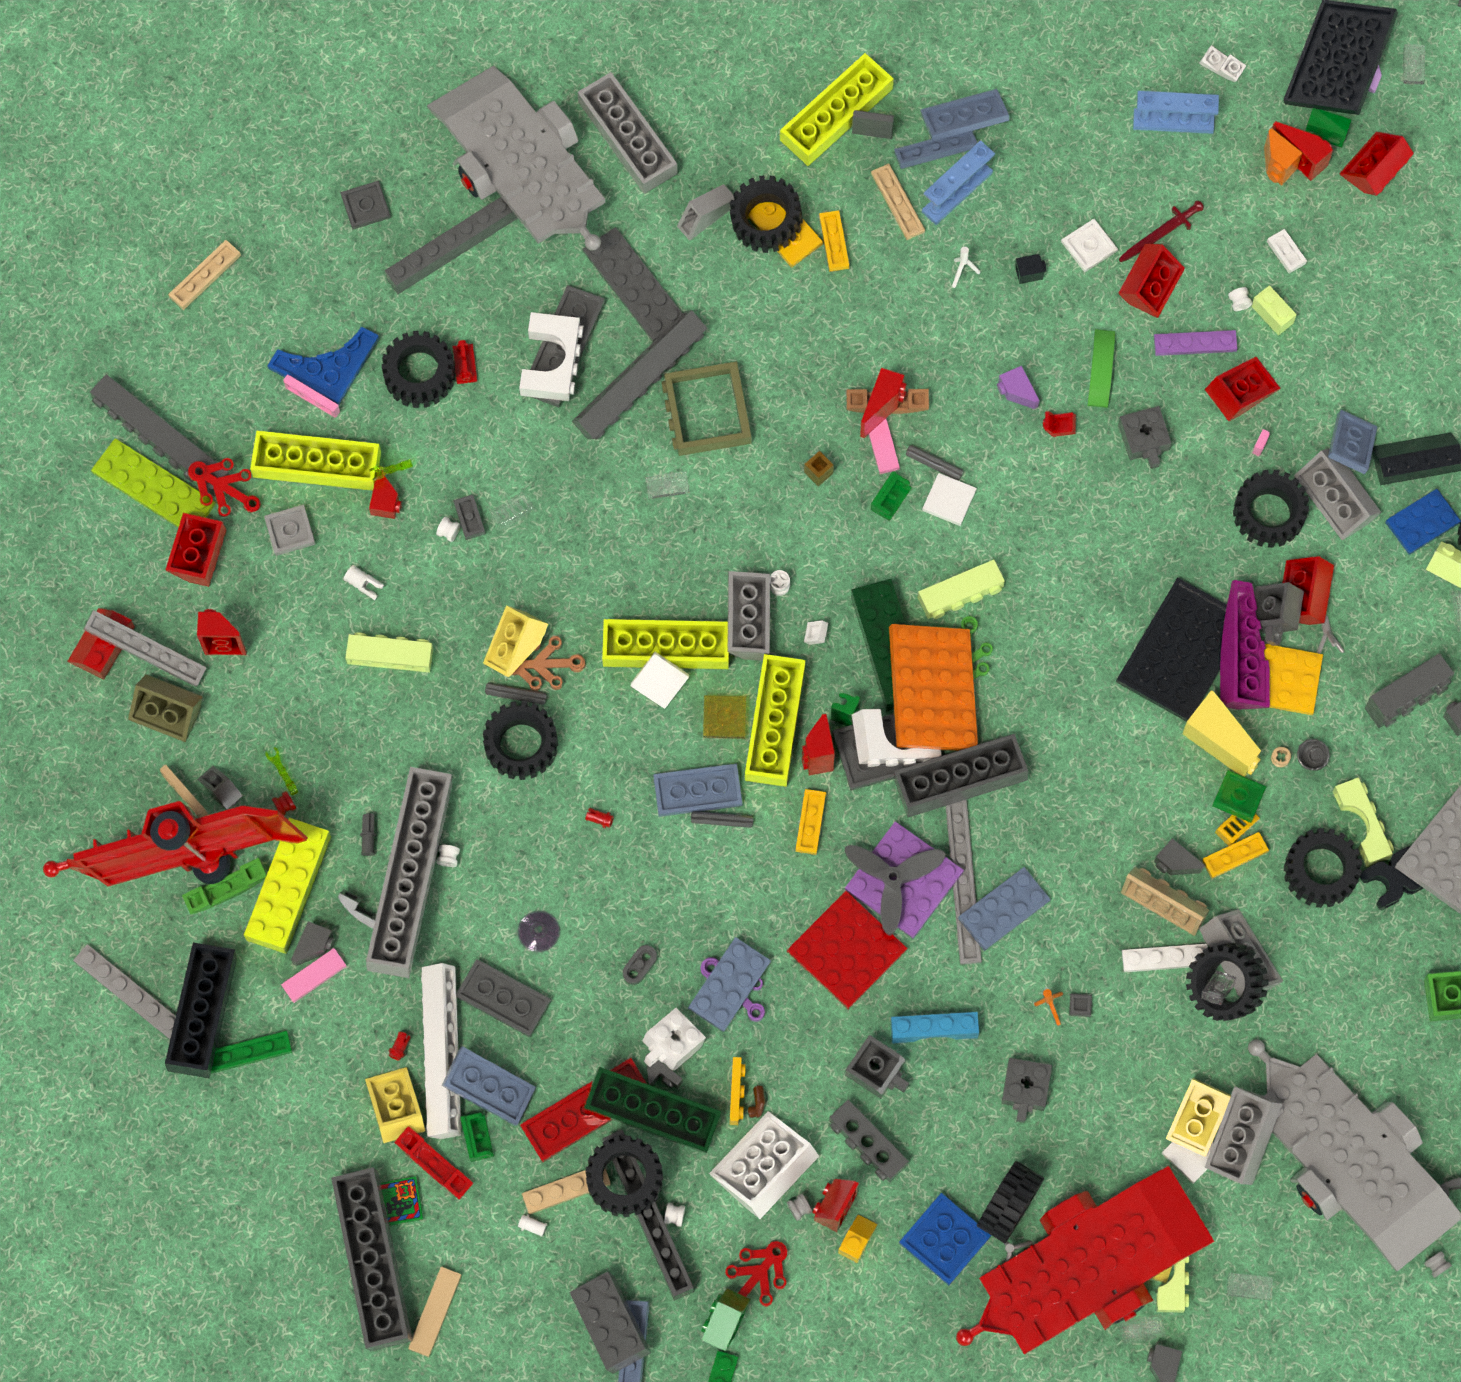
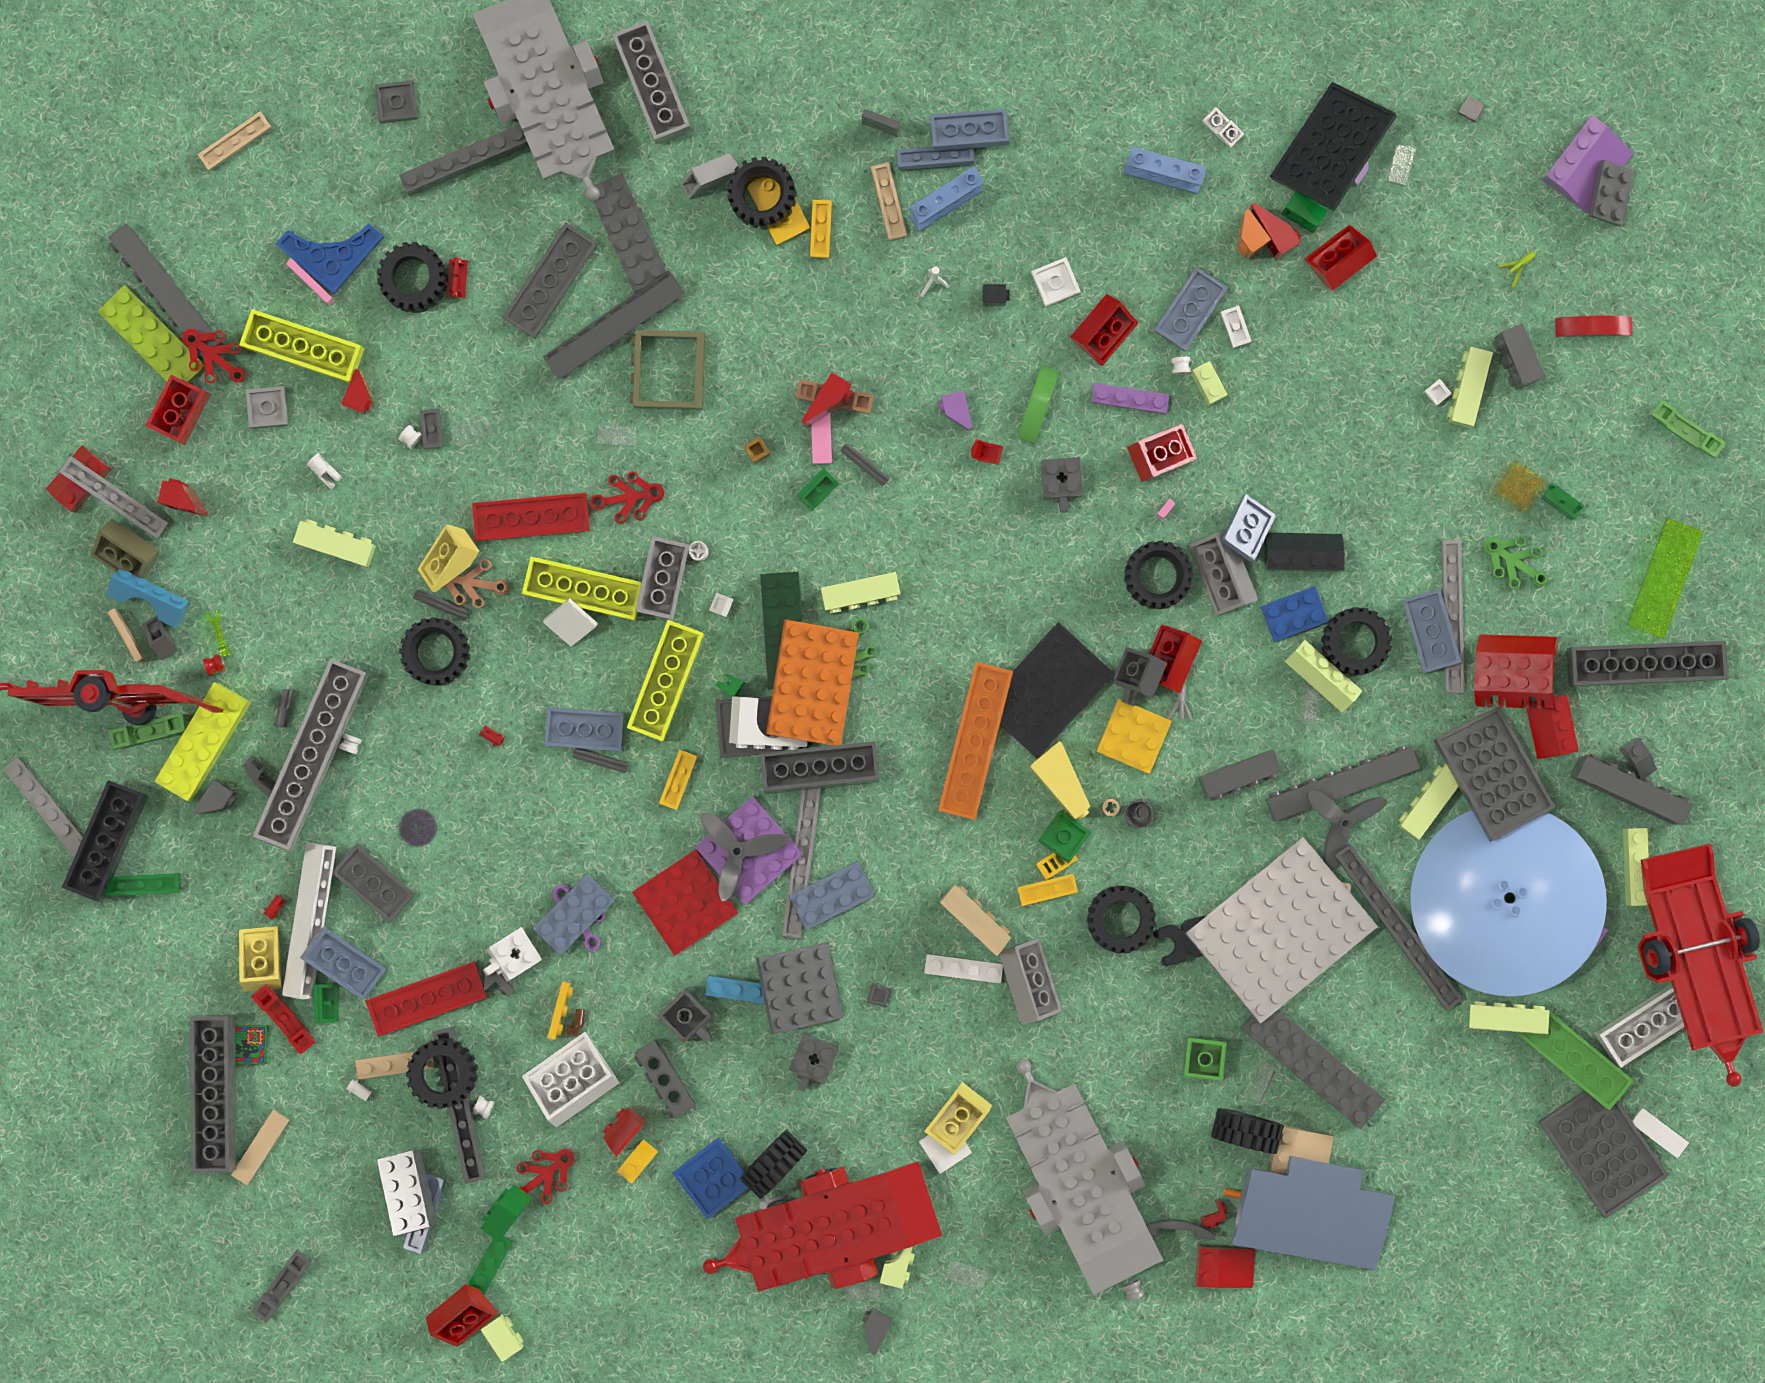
camera: 10 degrees right, 15 degrees up
(224, 751) = (169, 607): none -> dark azure arch
(313, 975) = (212, 826): bright pink tile -> none
(382, 471) = (357, 373): clear neon green piece -> none
(558, 382) = (538, 318): white arch -> none
(593, 584) = (531, 517): none -> red plate
(639, 965) = (500, 878): dark grey plate -> none
(652, 1110) = (480, 1015): dark green brick -> none
(693, 543) = (630, 497): none -> red plant
(724, 717) = (622, 666): clear yellow plate -> none
(799, 1207) = (592, 1123): light grey wheel -> none
(818, 749) = (697, 718): red slope -> none
(832, 110) = (846, 100): neon yellow brick -> none
(949, 499) = (870, 502): white tile -> none
(993, 1010) = (799, 988): none -> dark grey plate
(1049, 998) = (850, 988): orange plant -> none
(1120, 714) = (975, 740): none -> orange plate
(1173, 223) = (1127, 281): dark red sword -> none
(1177, 860) = (994, 884): dark grey slope -> none
(1205, 968) = (991, 1014): black tyre -> none
(1218, 987) = (1001, 1011): clear plate -> none
(1235, 243) = (1191, 309): none -> sand blue plate
(1243, 662) = (1097, 713): magenta wedge -> none
(1243, 1136) = (990, 1146): light grey slope -> none
(1353, 797) = (1172, 909): yellowish green arch -> none

